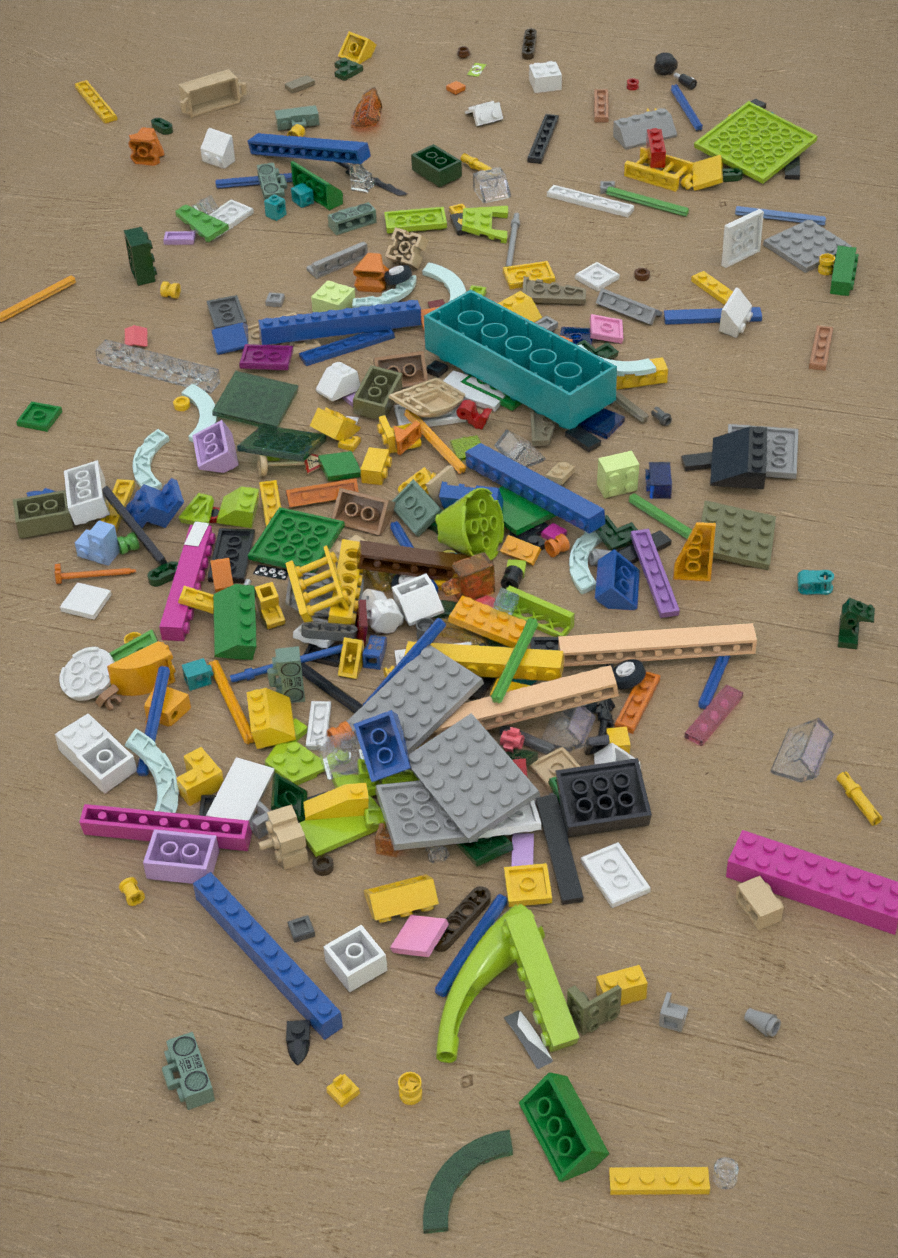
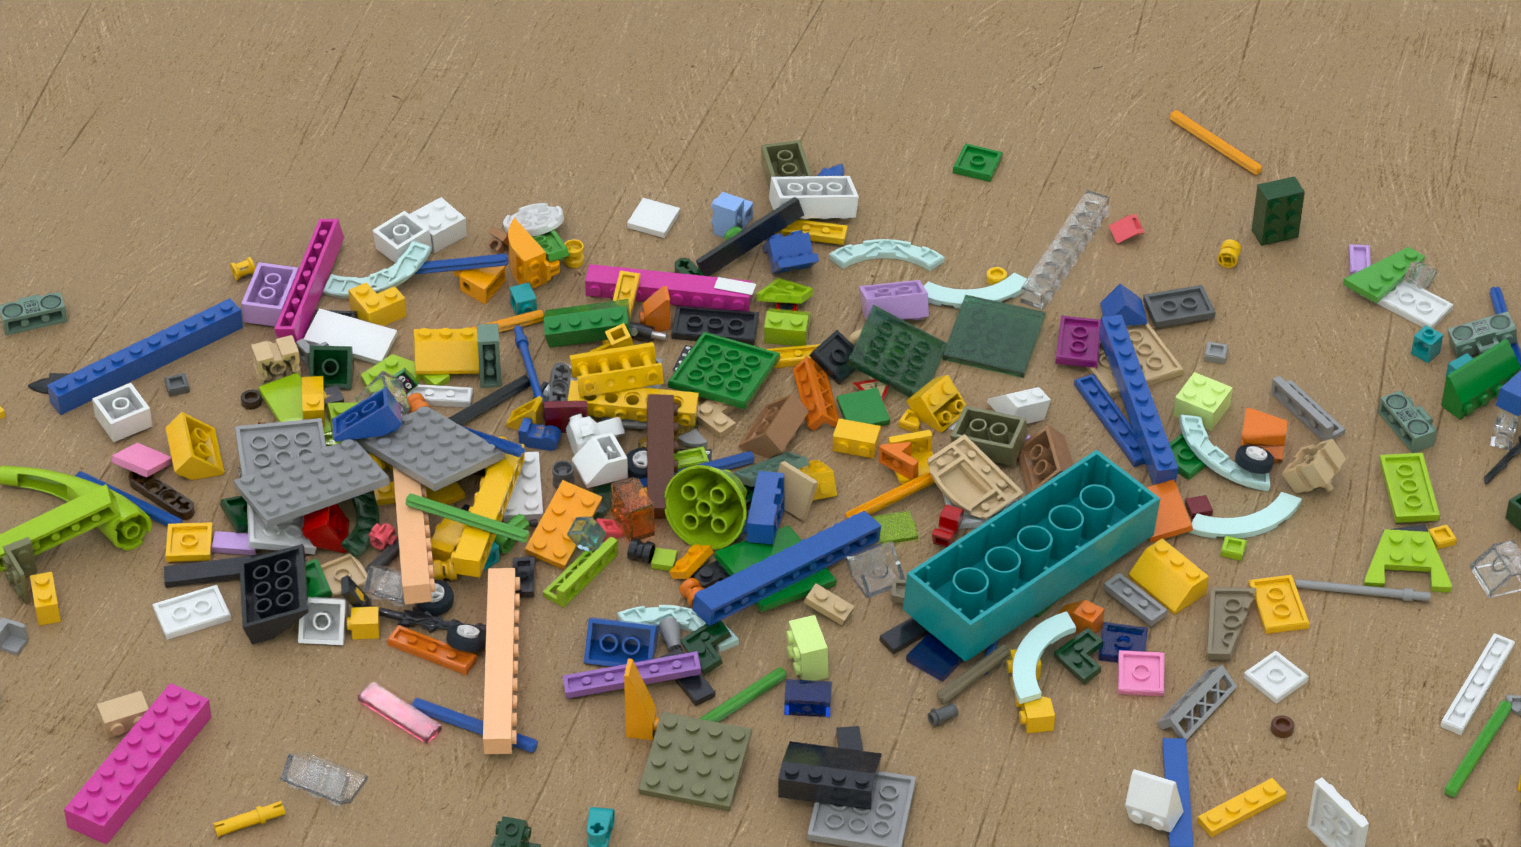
camera: 90 degrees right, 0 degrees up
(59, 576) = (692, 194): orange piece -> none
(280, 478) = (833, 356): none -> black tile
(310, 737) = (407, 378): none -> tile

